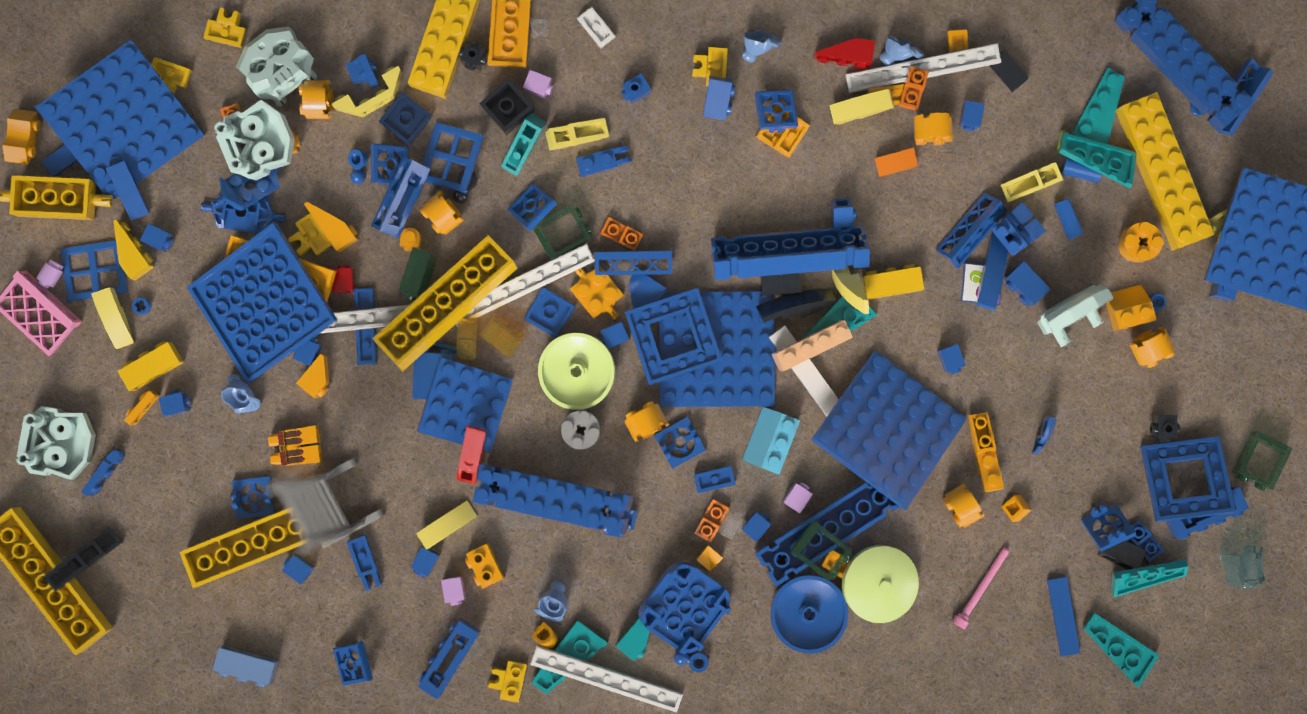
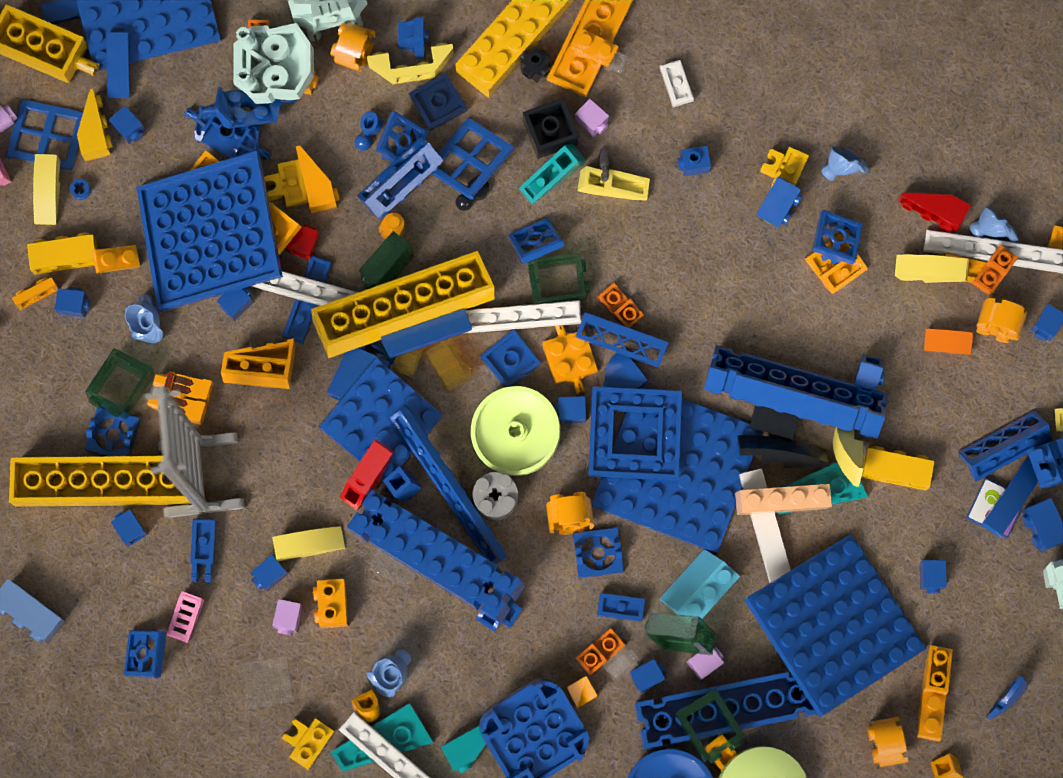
camera: 25 degrees right, 10 degrees down
(195, 354) = (115, 259): none -> light orange plate
(228, 437) = (128, 363): none -> clear green window
(316, 378) = (233, 332): light orange slope -> none
(350, 397) = (260, 366): none -> light orange wedge
(372, 605) = (192, 620): none -> bright pink slope
(431, 685) = (221, 711): blue brick -> none
(441, 213) = (438, 211): light orange brick -> none
(473, 319) = (426, 333): none -> blue tile
(503, 449) = (402, 484): none -> blue brick
(516, 23) = (594, 47): none -> light orange plate
(541, 438) = (448, 486): none -> blue plate
(563, 121) = (604, 164): none -> flat silver piece
(601, 161) = (629, 222): blue hinge -> none
(770, 485) = (681, 633): none -> clear green window

